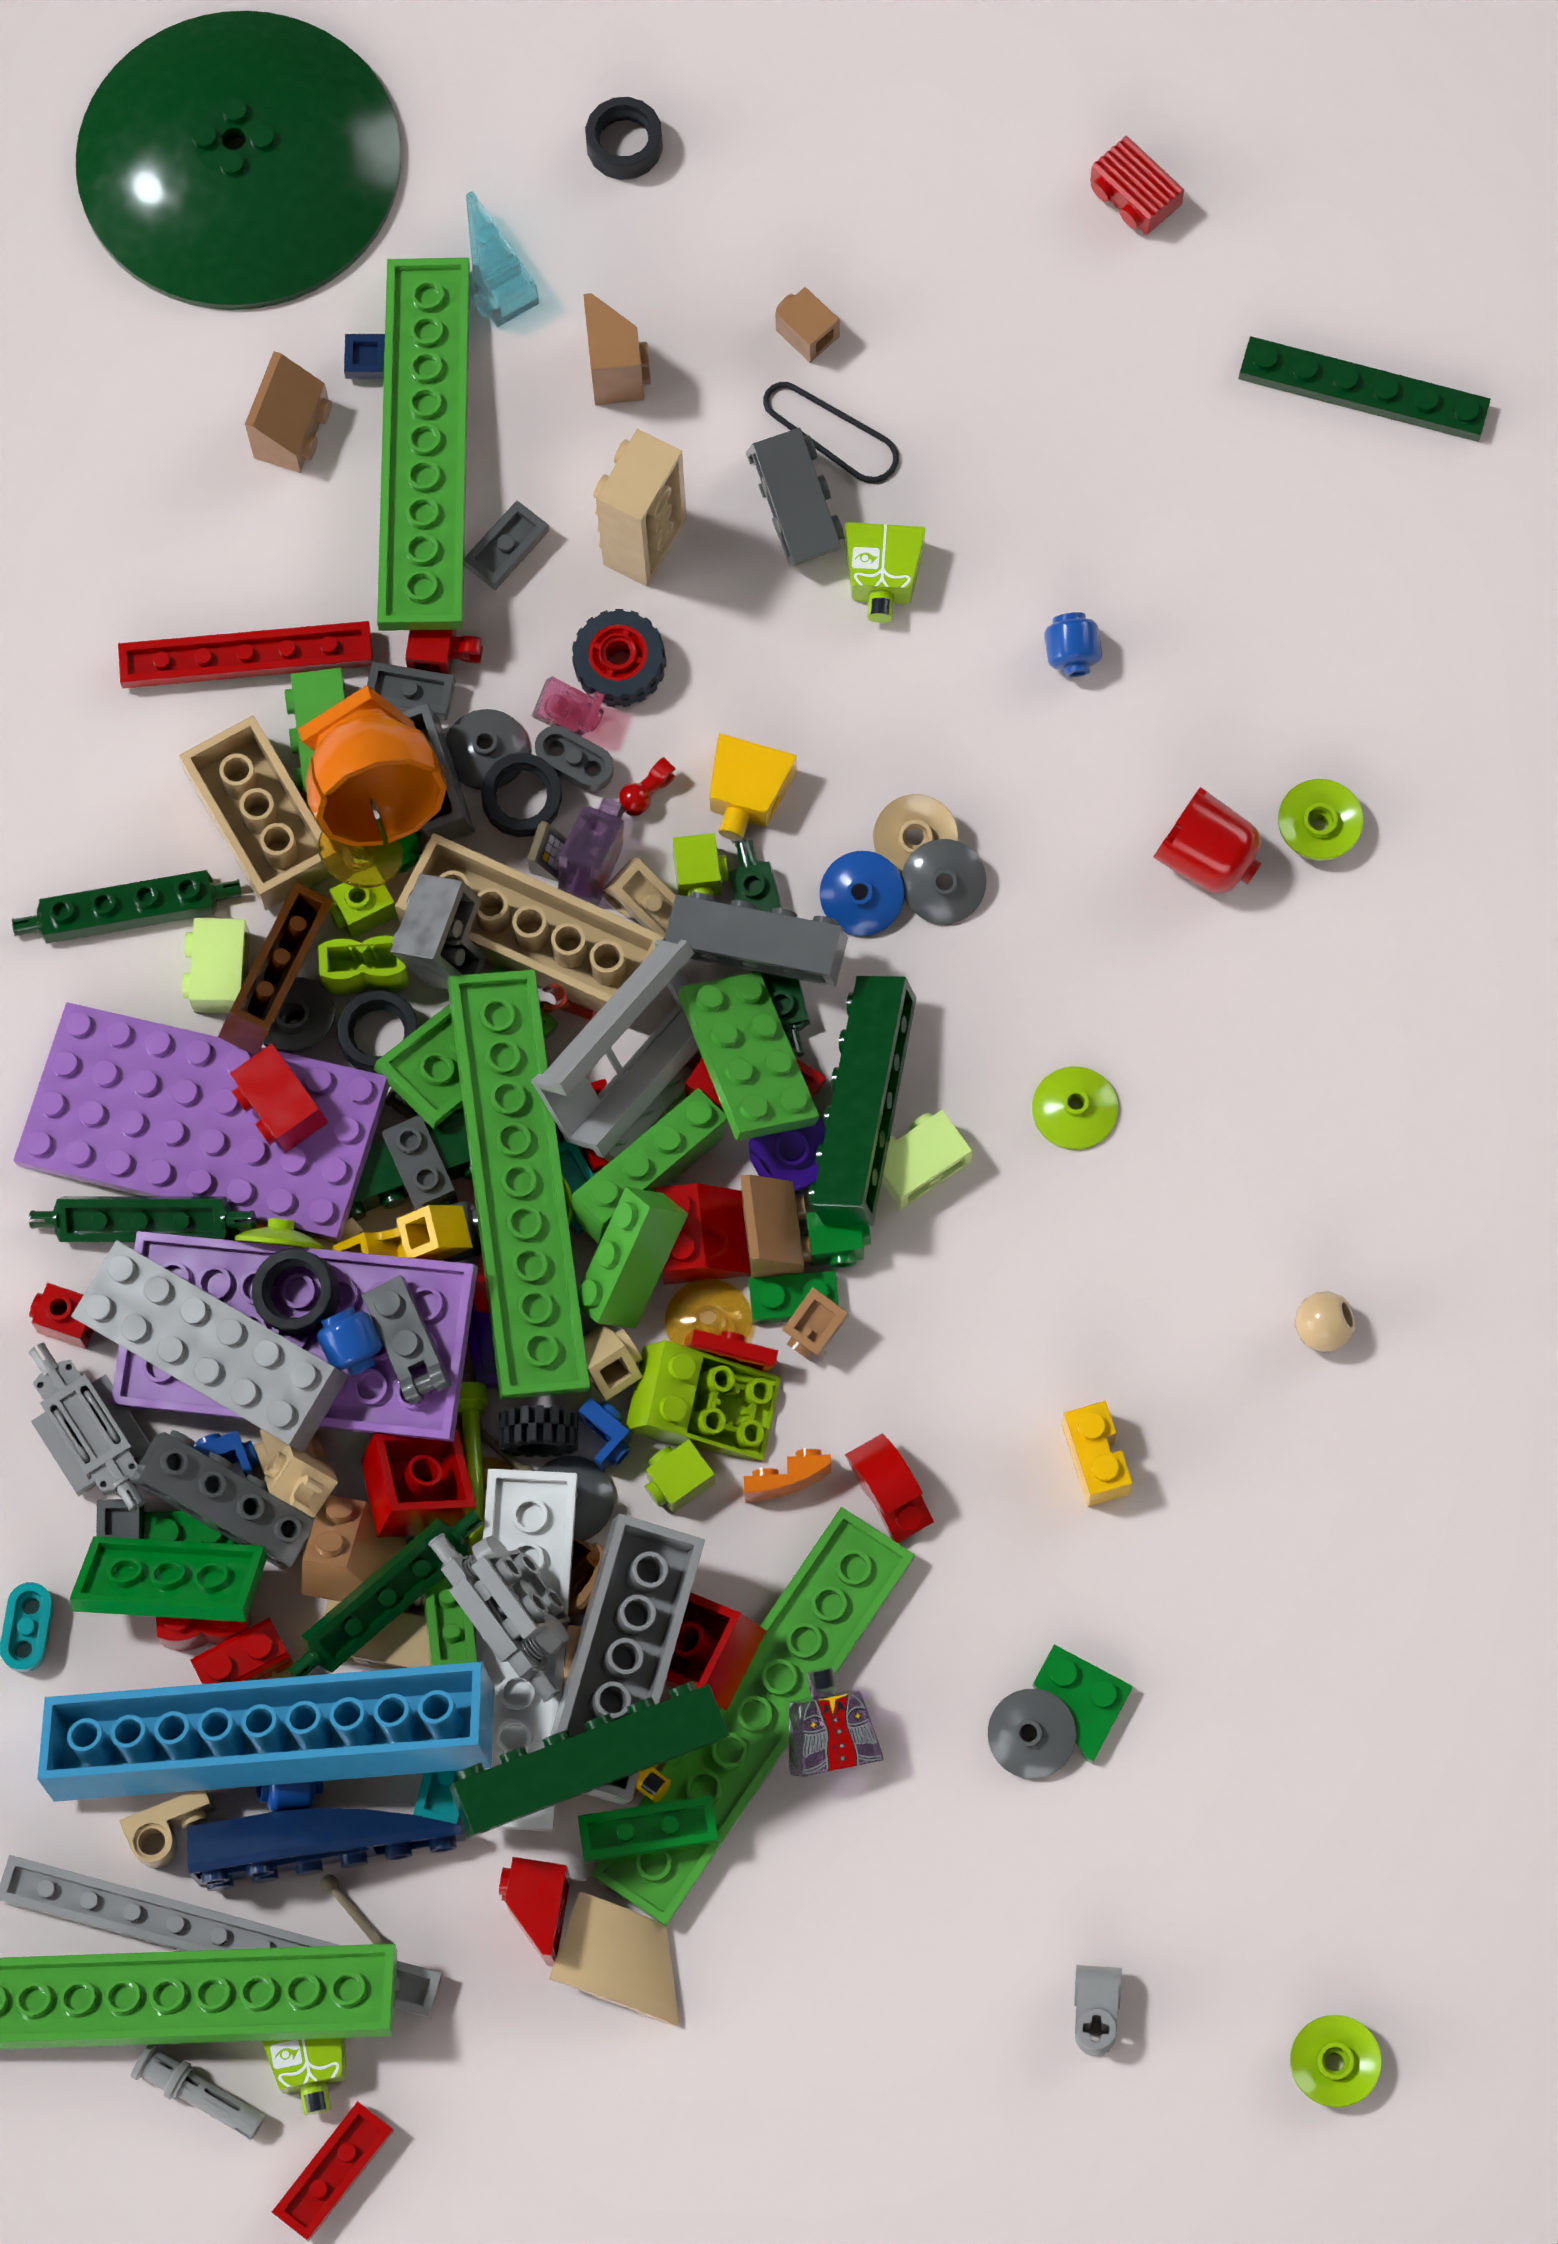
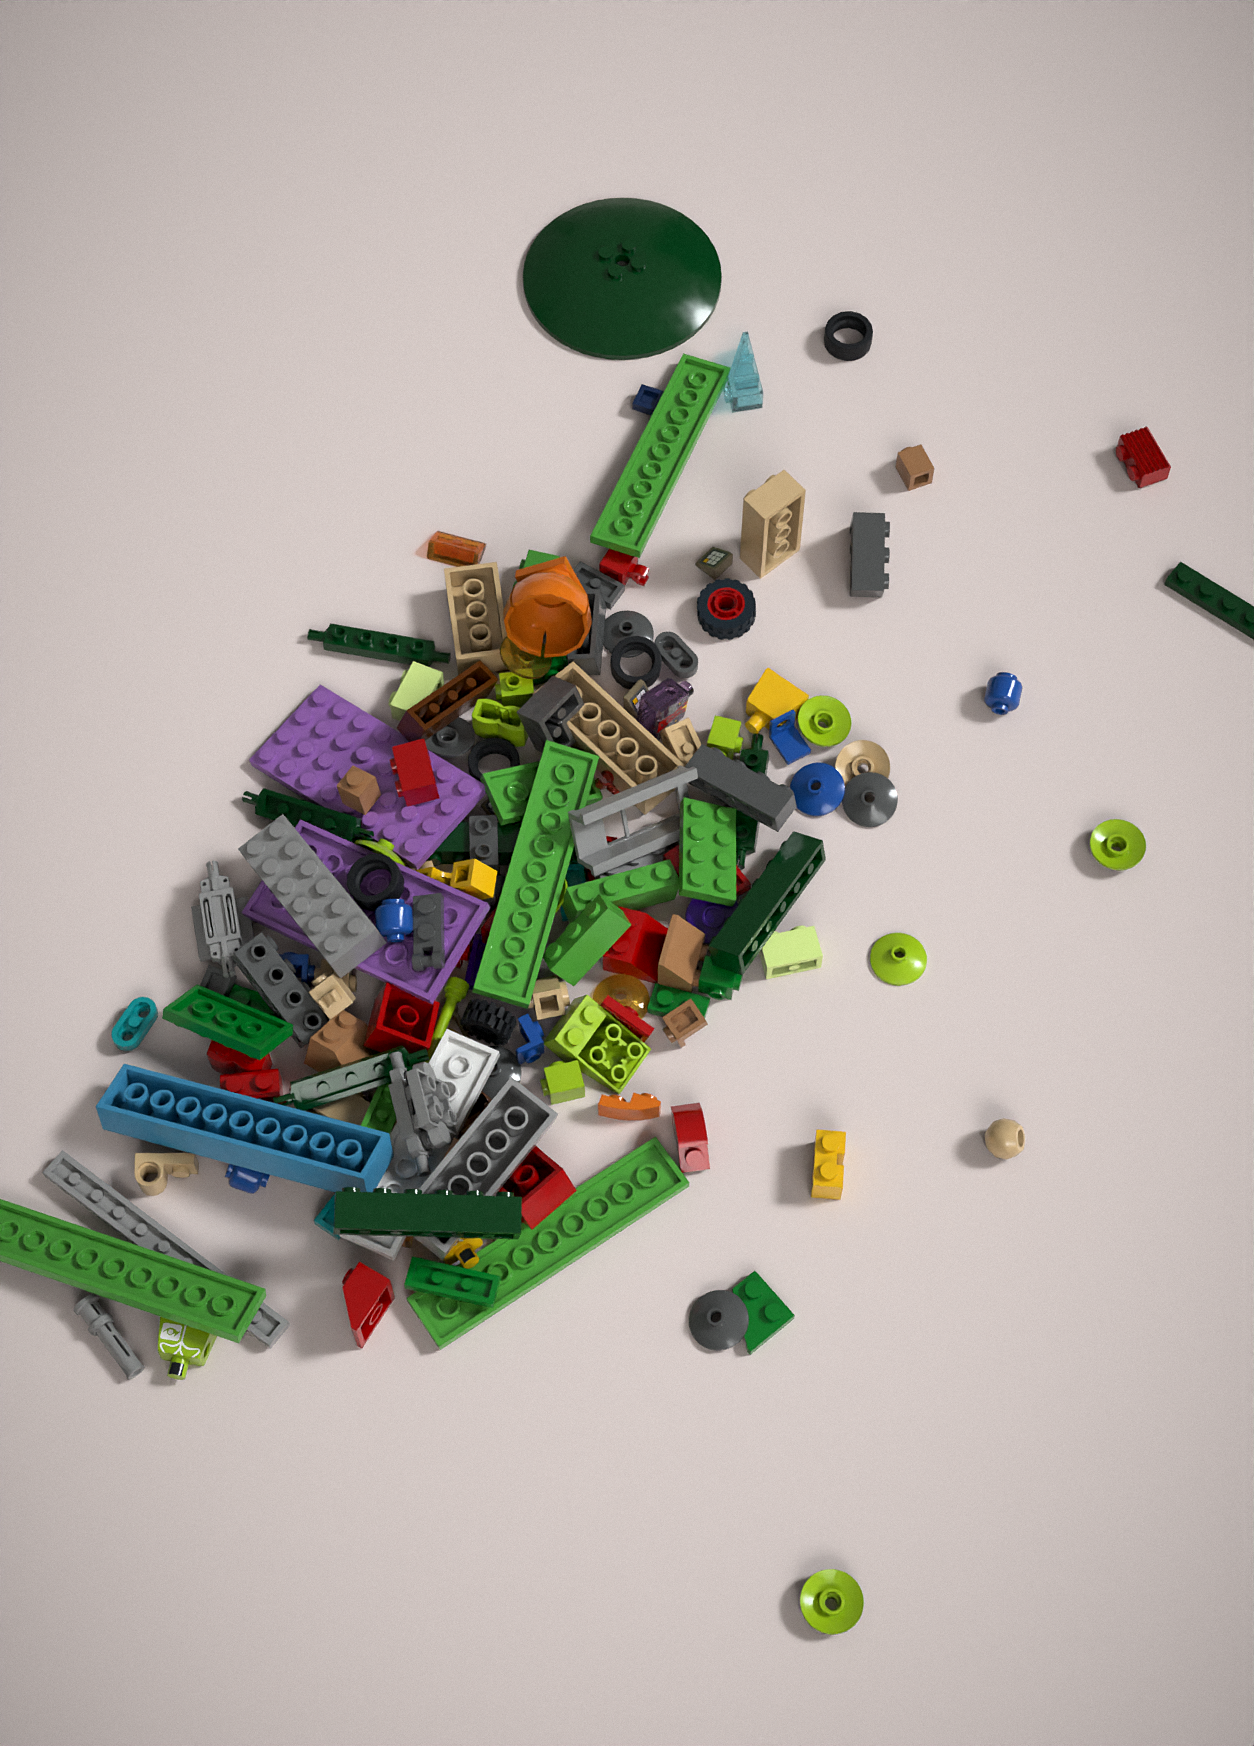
camera: 20 degrees right, 10 degrees down
(53, 1315) = (231, 856): red brick -> none
(175, 709) = (455, 550): none -> clear orange slope
(207, 1156) = (358, 790): none -> medium nougat brick
(245, 654) = (507, 532): red plate -> none
(287, 414) = (588, 412): medium nougat slope -> none
(306, 1841) = (242, 1211): dark blue wedge -> none
(330, 1884) = (246, 1243): dark tan hinge -> none
(333, 2171) = (169, 1417): red plate -> none
(506, 545) = (686, 526): dark grey plate -> none
(568, 707) = (684, 624): clear pink bracket -> none
(570, 586) = (715, 562): none -> dark tan slope
(615, 353) = (792, 443): medium nougat slope -> none
(618, 1958) = (400, 1355): tan slope -> none
(637, 796) = (704, 688): red arm -> none
(791, 832) = (787, 738): none -> blue bracket
(830, 1729) = (591, 1265): torso -> none
(843, 769) = (825, 710): none -> lime dish
(868, 479) = (916, 526): black piece -> none
(883, 565) = (906, 611): lime torso -> none
(1097, 2001) = (691, 1502): light grey piece -> none
(1211, 845) = (1042, 833): red cylinder -> none

